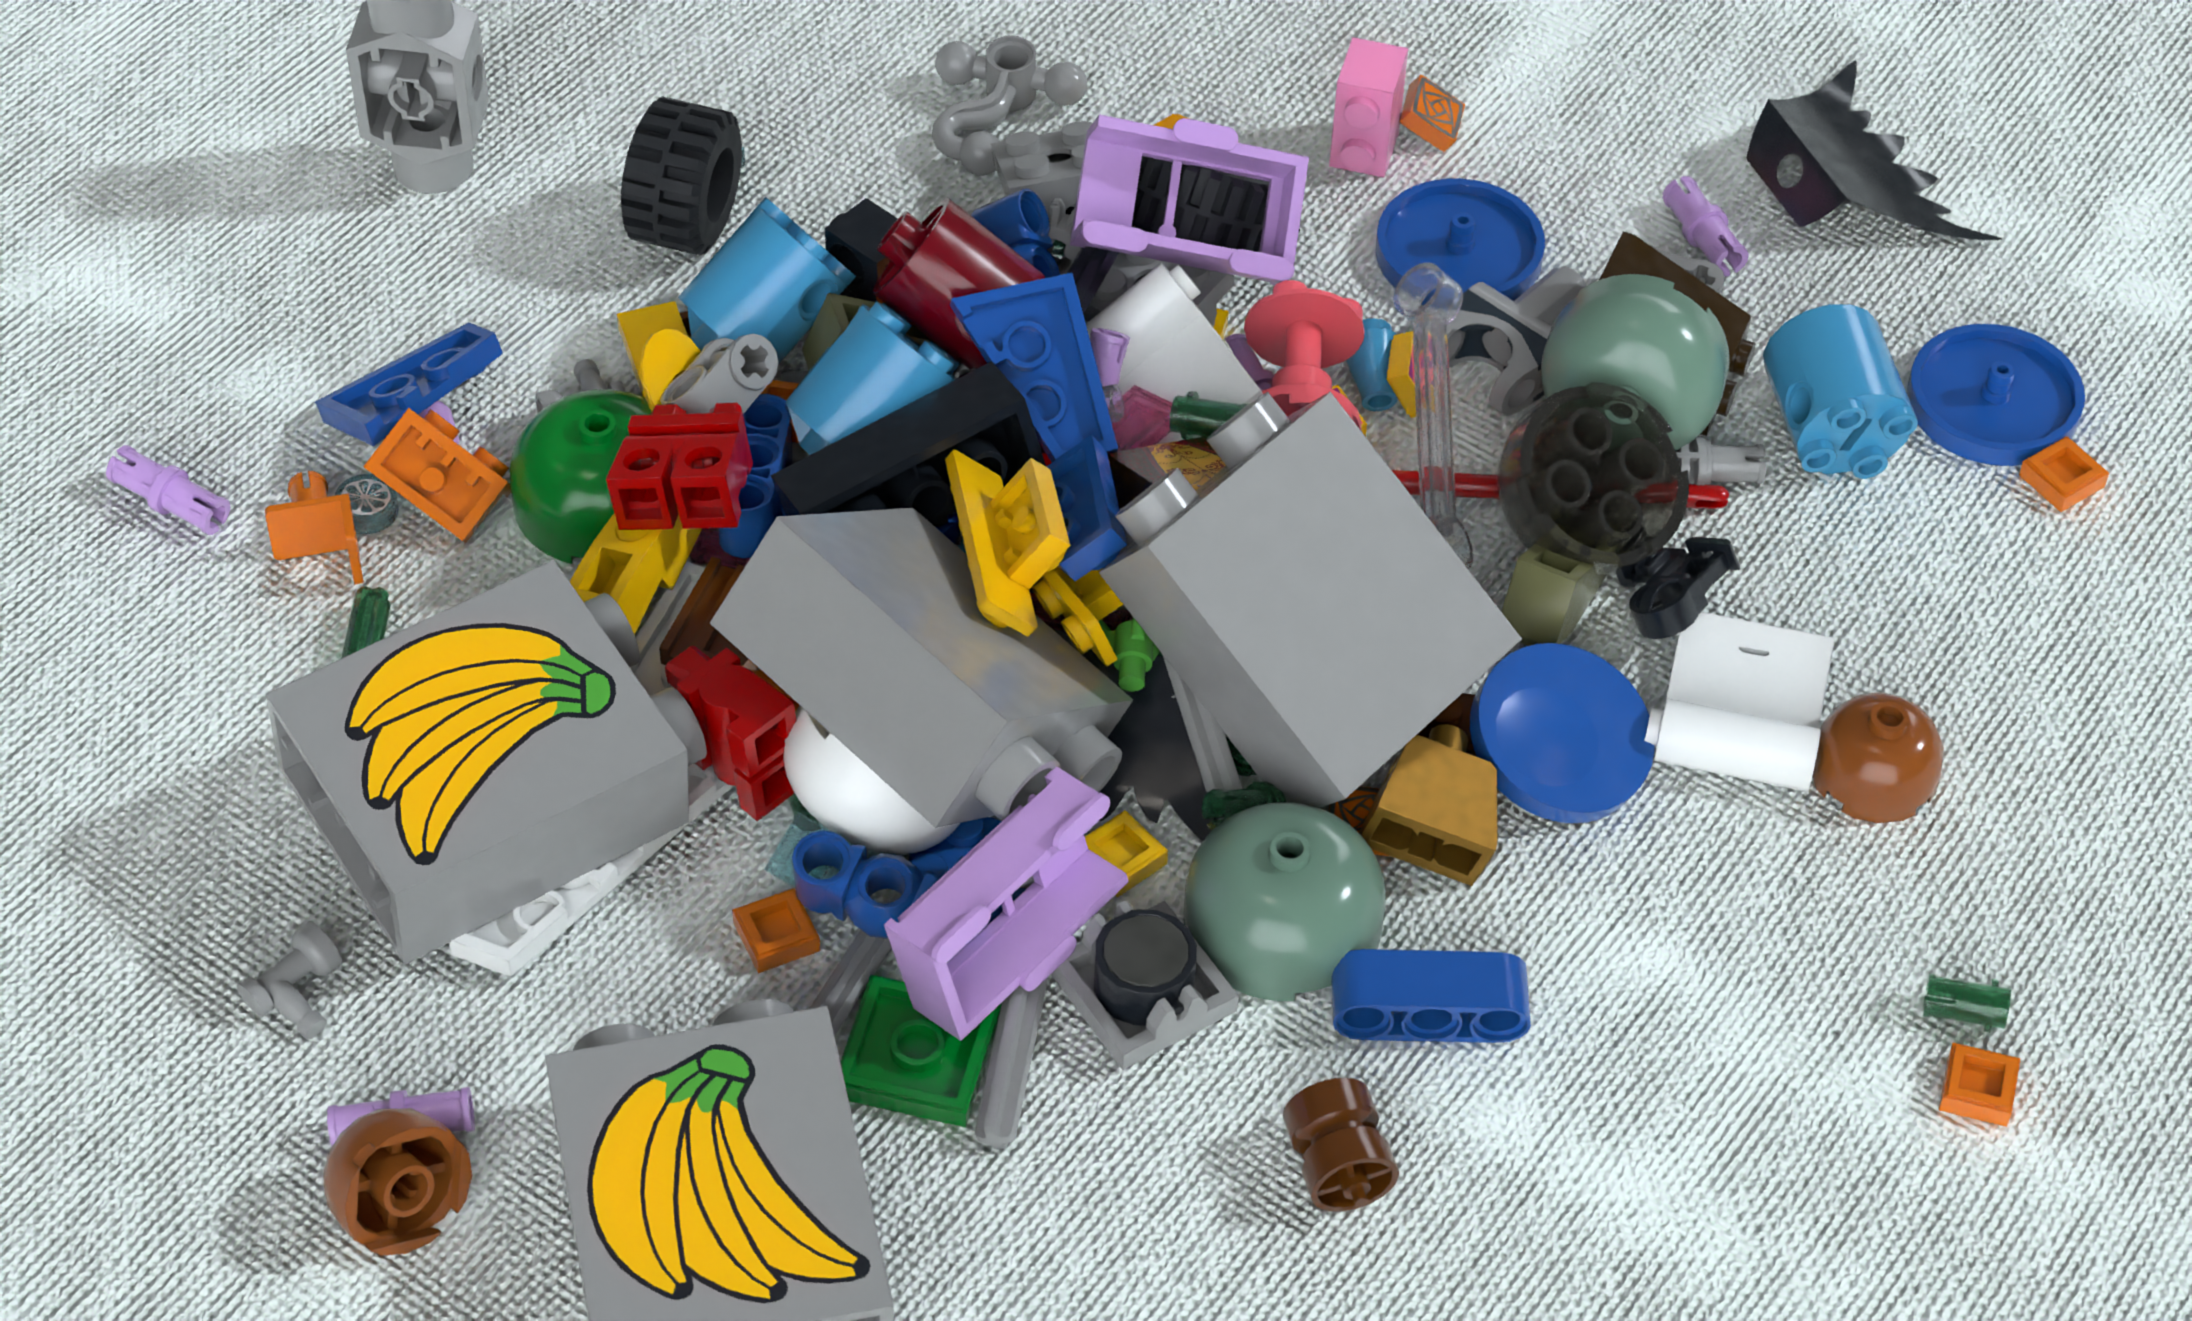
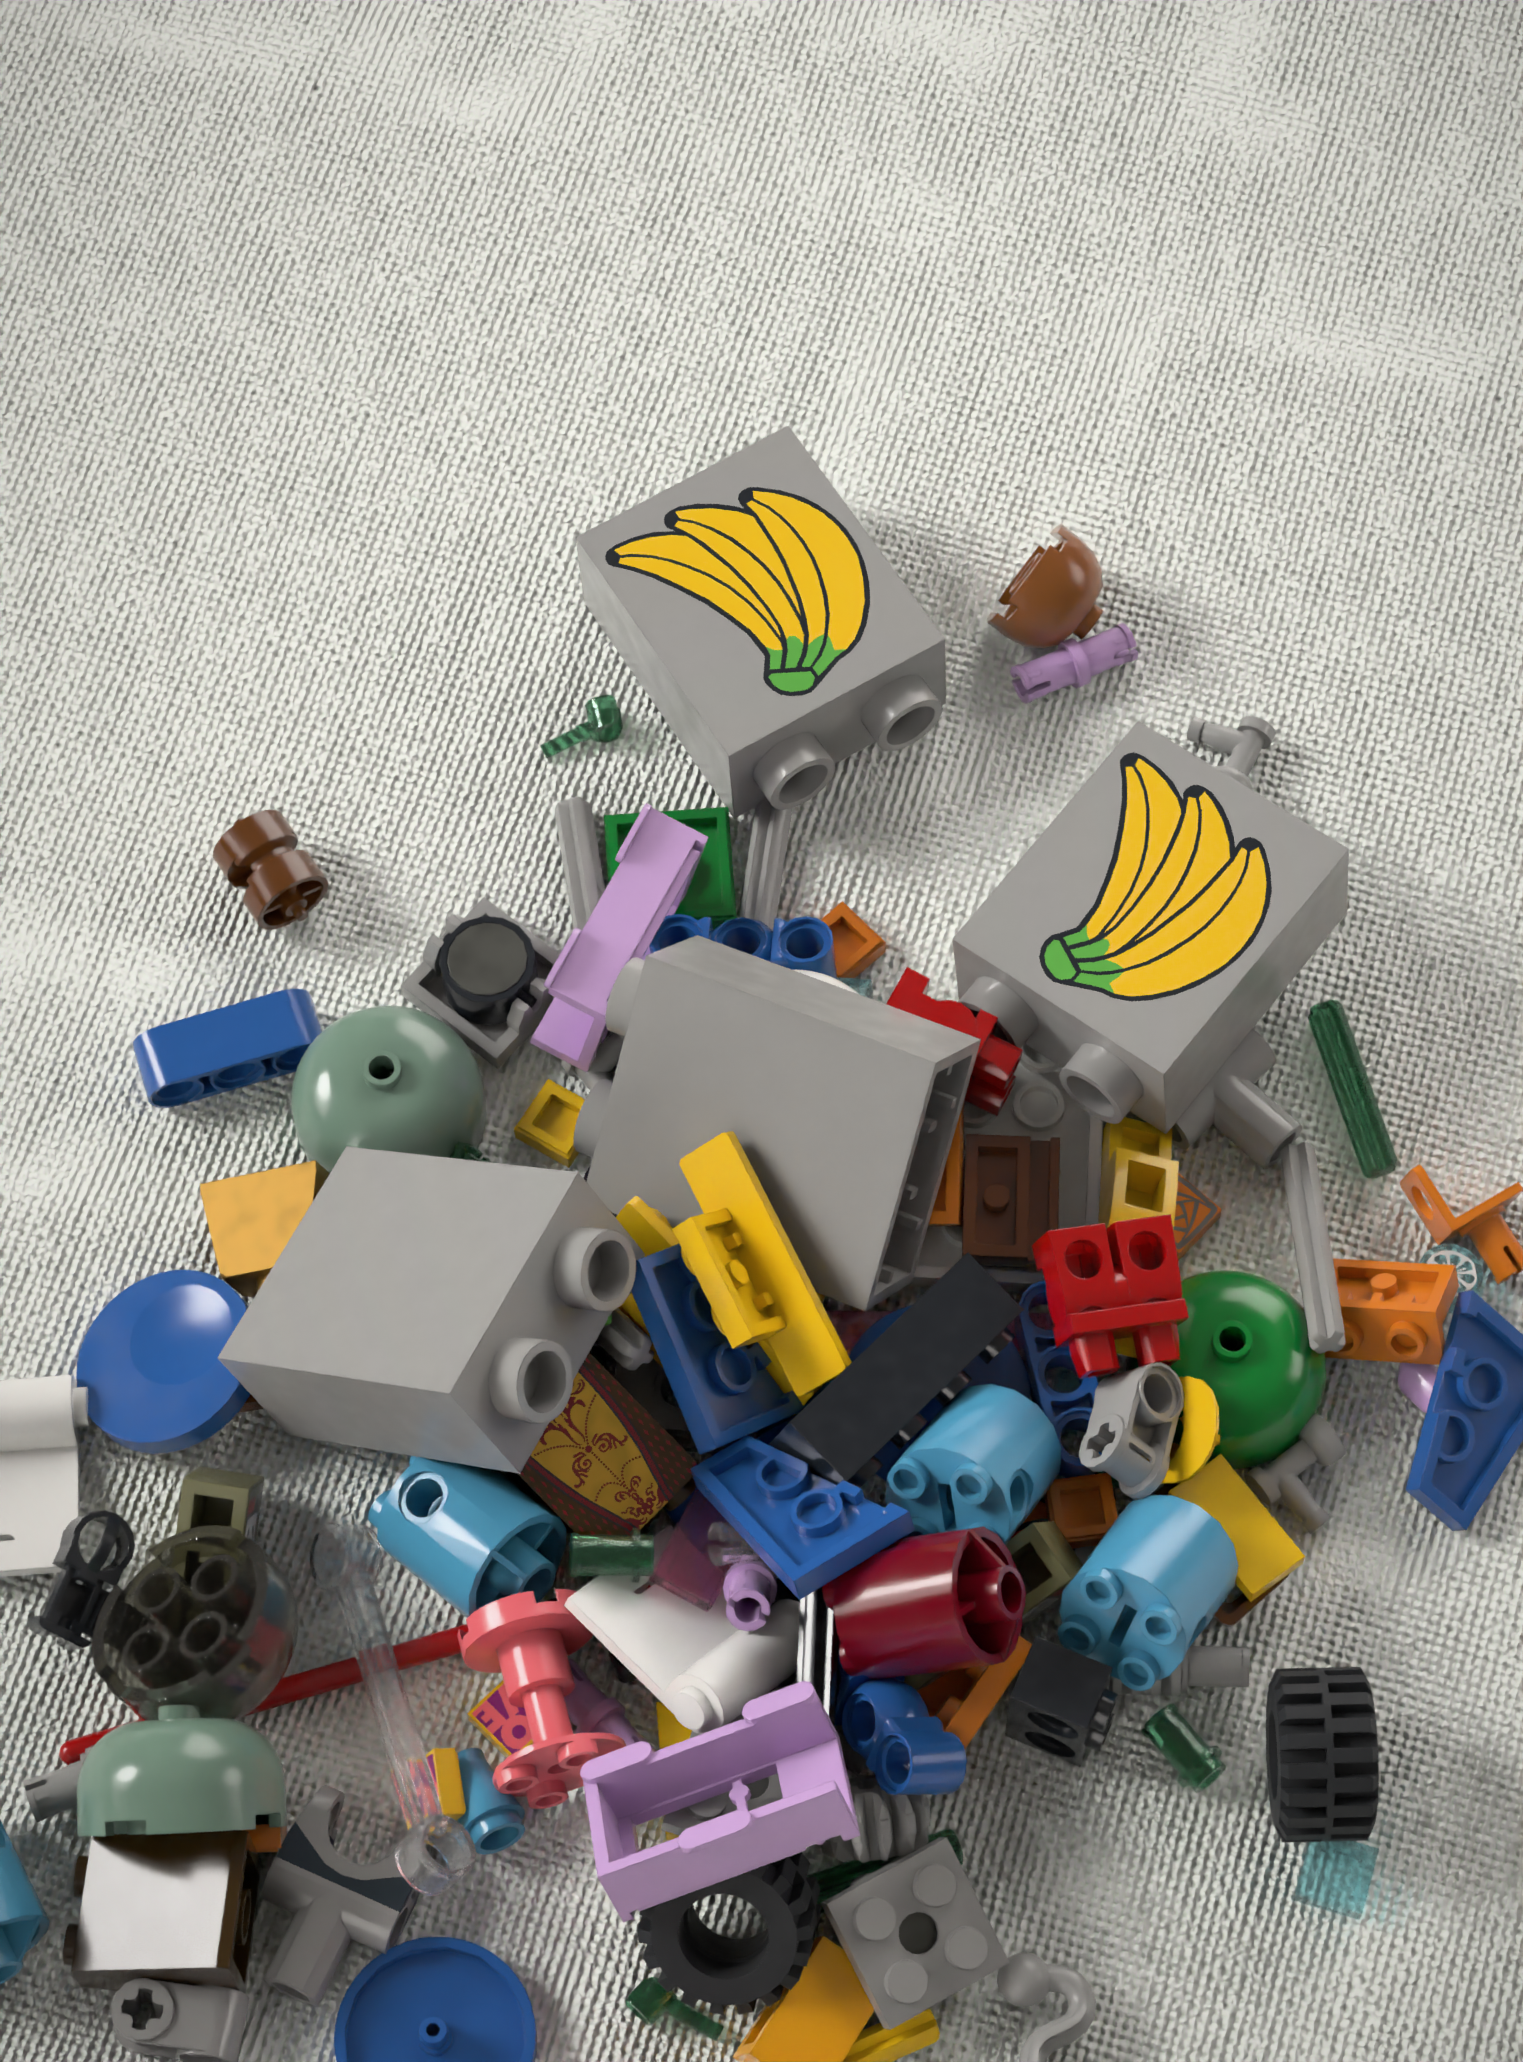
camera: 165 degrees right, 15 degrees up
(480, 509) = (1312, 1248): none -> light grey axle
(931, 1211) = (602, 725): none -> clear green hand

